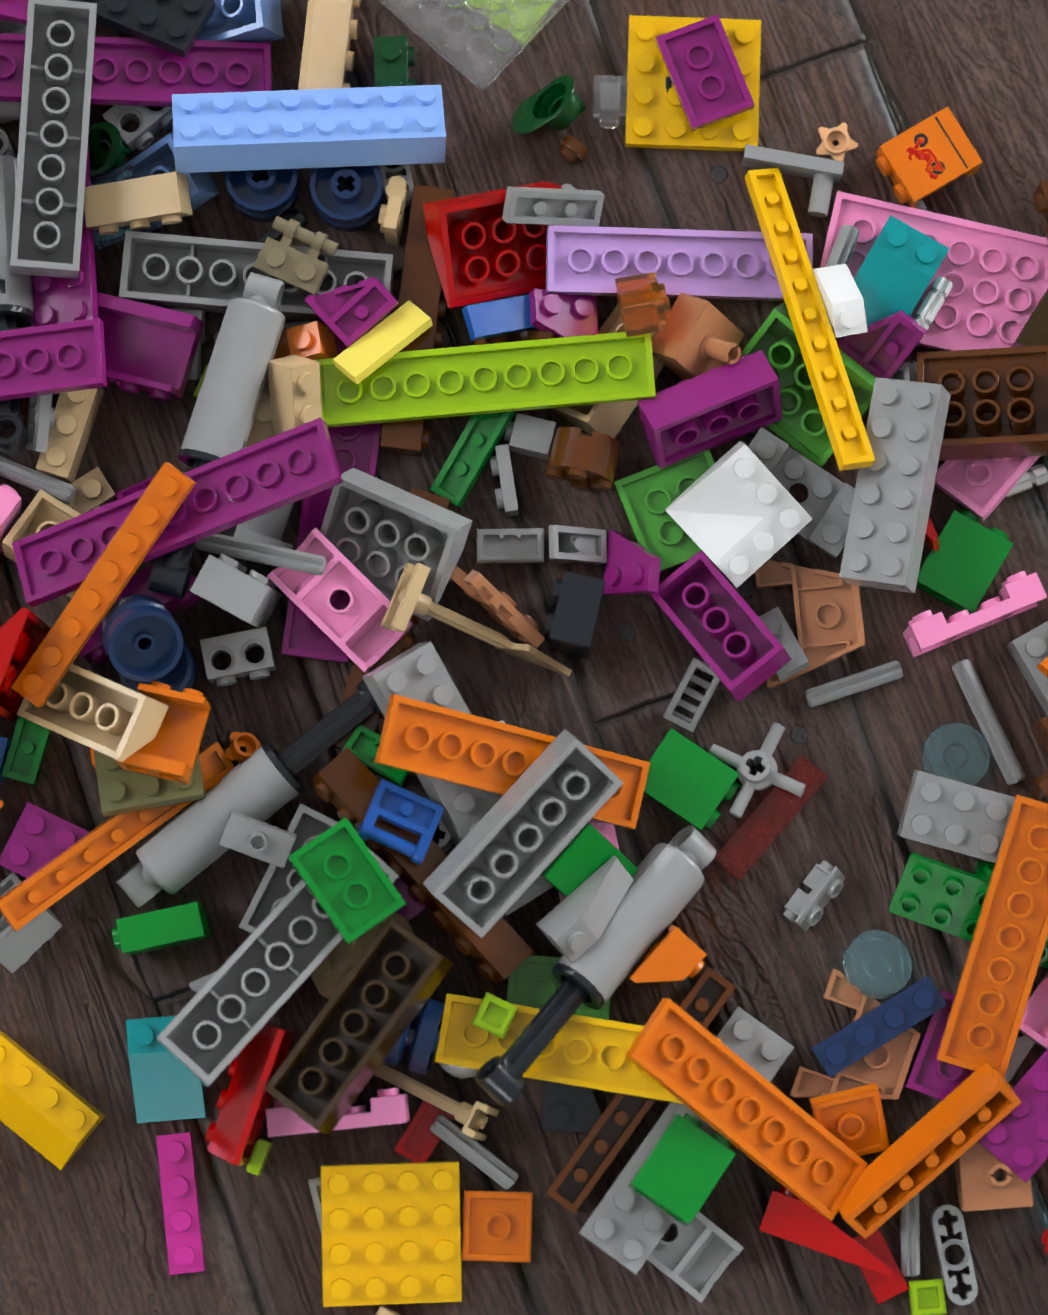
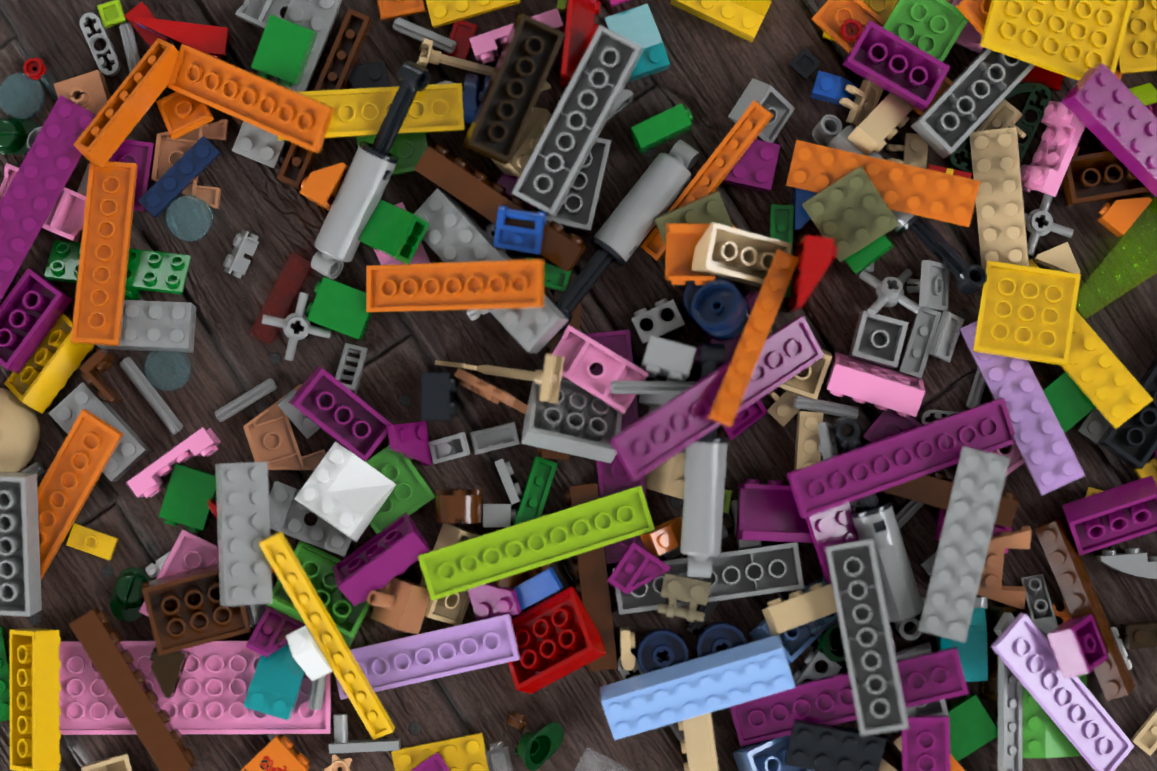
camera: 165 degrees right, 5 degrees up
(241, 740) = (641, 266): orange plate -> none
(257, 839) = (611, 198): light grey plate -> none
(293, 392) = (660, 497): tan brick -> none
(346, 880) = (543, 179): green plate -> none
(382, 342) = (610, 551): light yellow tile -> none
(393, 61) = (653, 749): dark green brick -> none
(495, 1015) = (428, 121): lime tile -> none
(523, 833) = (436, 239): light grey brick -> none
(553, 206) = (517, 673): light grey piece -> none
(587, 911) = (383, 201): light grey slope -> none
(642, 304) = (441, 618): clear orange brick -> none
(933, 302) = (248, 669): white axle -> none

